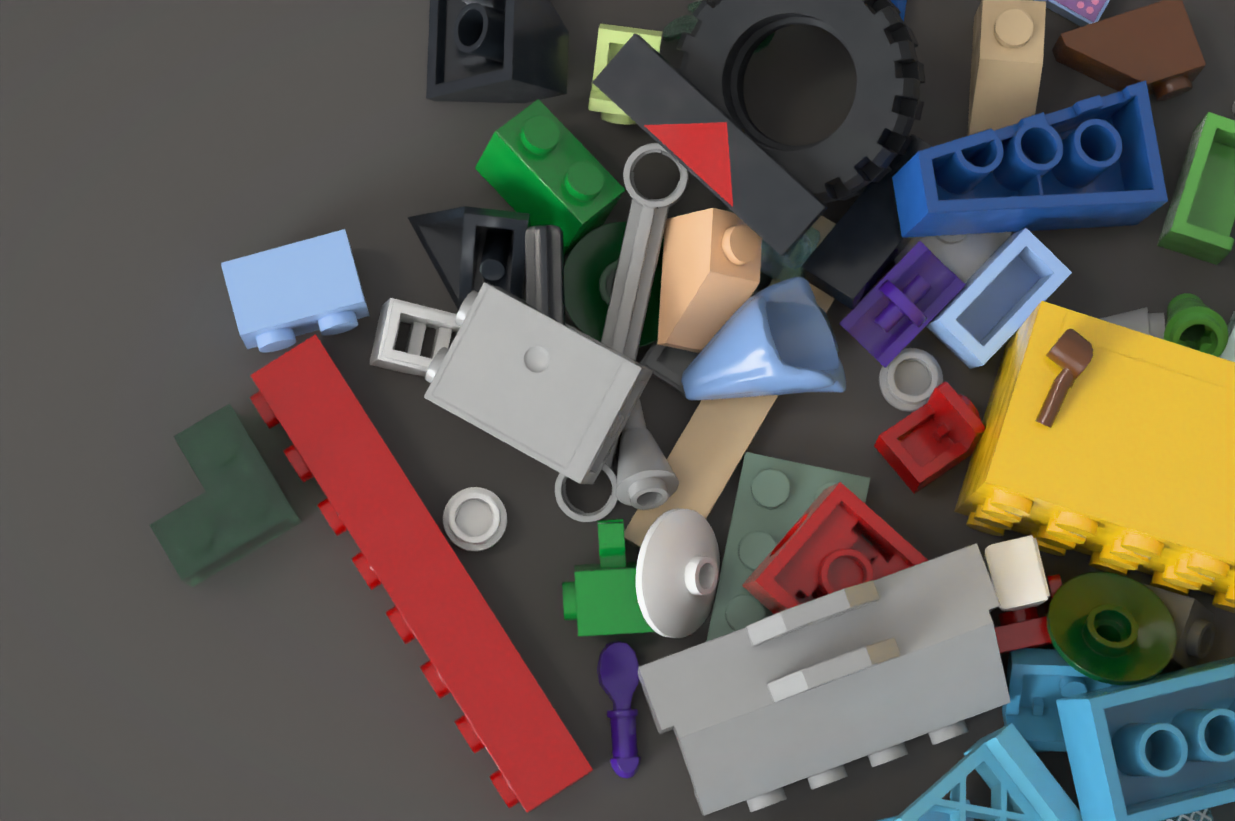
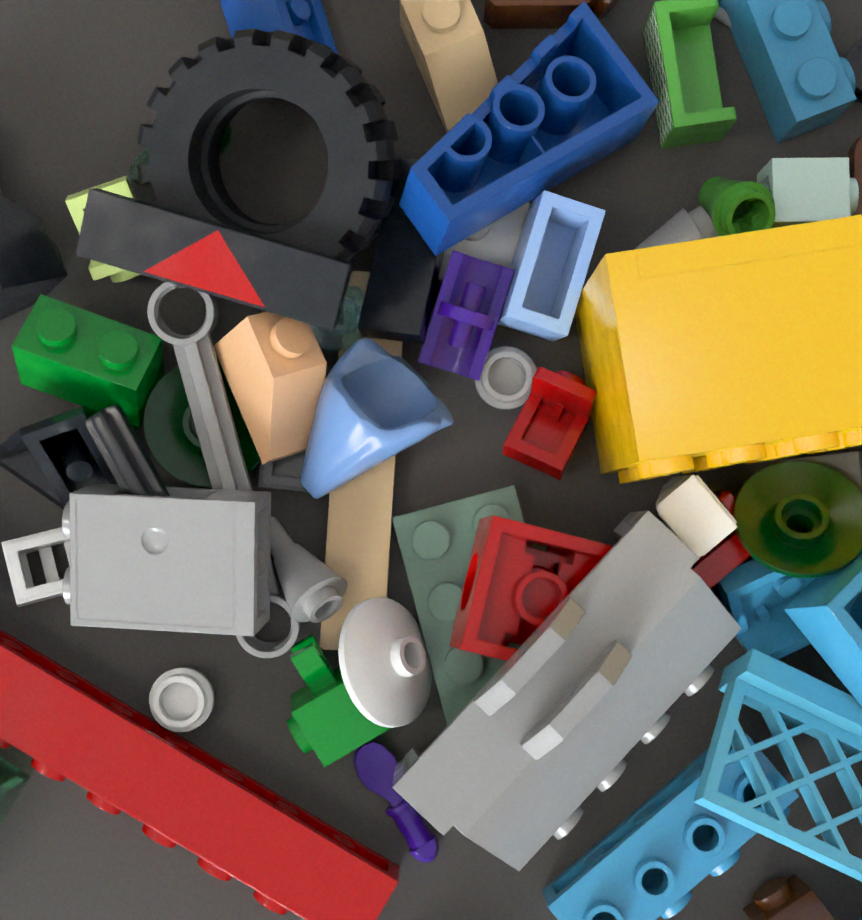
camera: 30 degrees left, 5 degrees up
(1073, 355) = (667, 294): reddish brown hand -> none

